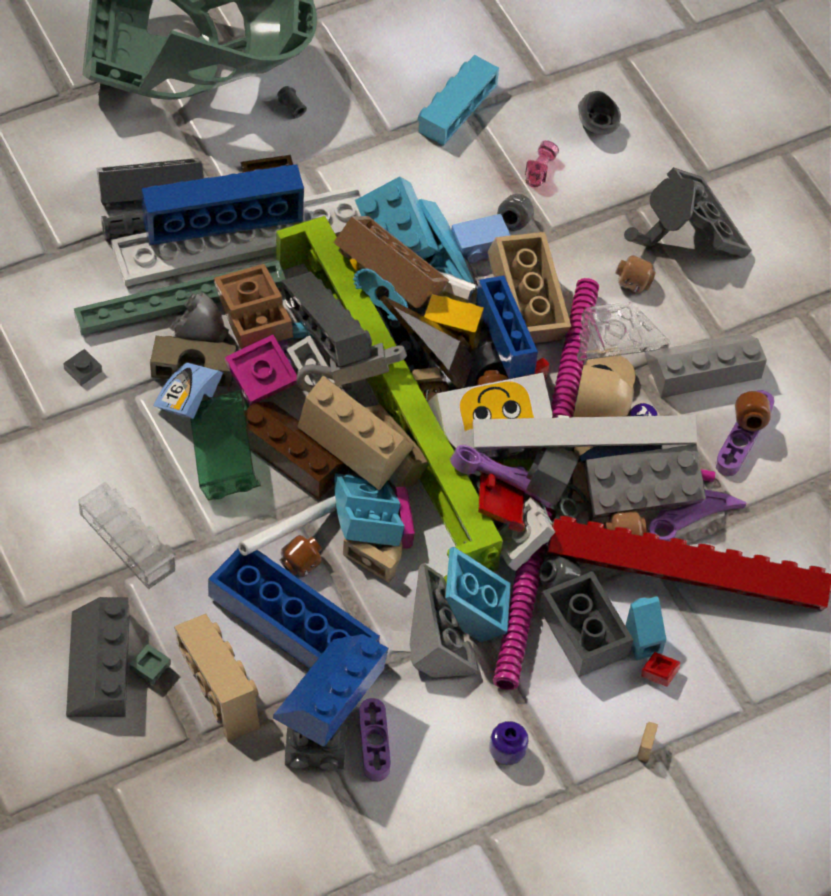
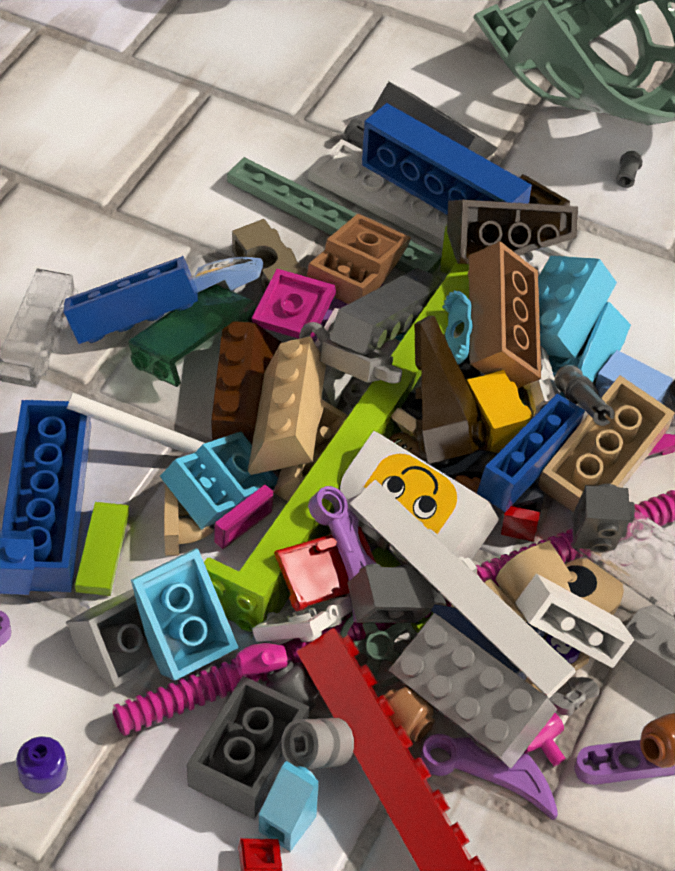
camera: 55 degrees right, 5 degrees down
(82, 367) = (194, 201): dark grey plate -> none
(169, 460) = (131, 300): none -> blue brick
(200, 321) = (308, 235): light grey piece -> none
(301, 555) = (124, 462): dark orange head -> none
(317, 211) = (518, 226): none -> dark brown wedge
(360, 609) = (102, 549): none -> lime tile
(482, 267) = (580, 391): none -> dark grey pin
(539, 573) = (261, 659): none -> dark pink piece
(593, 327) = (601, 517): none -> dark grey brick
(623, 582) = (317, 743): none -> light grey wheel
(648, 394) = (574, 621): none -> white brick

